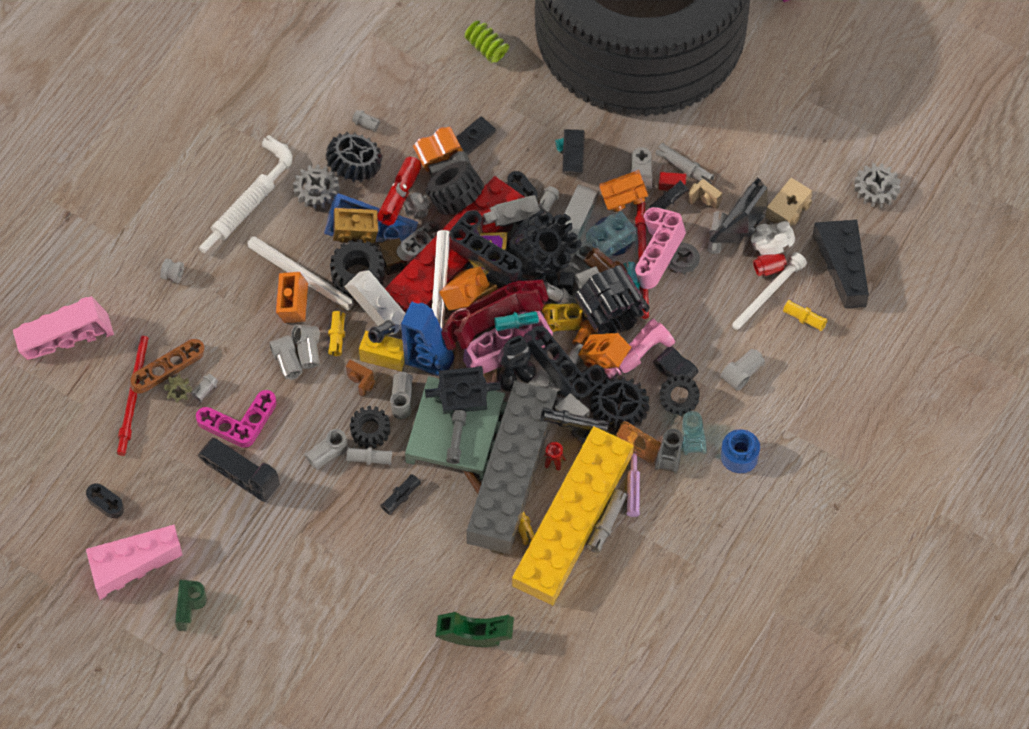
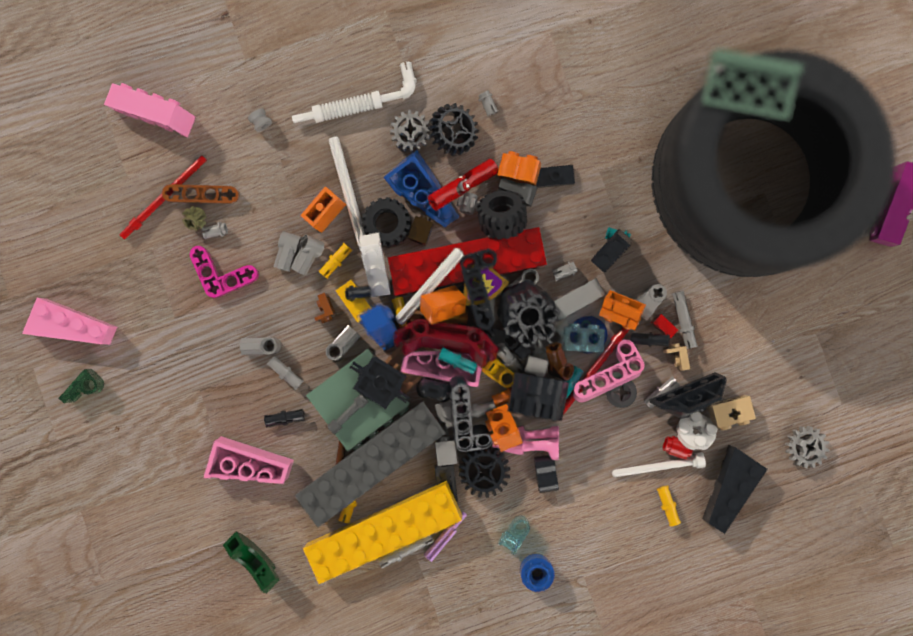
camera: 35 degrees right, 25 degrees up
(101, 504) = (82, 265): black beam -> none
(256, 480) = (190, 314): black beam -> none
(355, 225) = (408, 189): pearl gold bracket -> none
(370, 438) = (291, 355): black tyre -> none
(397, 551) = (244, 462): none -> bright pink wedge
(421, 233) = (438, 232): dark grey beam -> none
(486, 41) = (624, 107): lime piece -> none
(511, 212) = (526, 269): light grey hinge -> none
(525, 184) = (559, 247): black beam -> none
(554, 452) = (408, 474): red piece -> none
(564, 418) = (430, 462): black pin -> none
(644, 445) = (472, 511): clear orange tile -> none
(670, 454) = (486, 537): dark grey piece -> none
(679, 381) = (524, 507): black tyre -> none
(739, 373) = (584, 512): light grey piece -> none

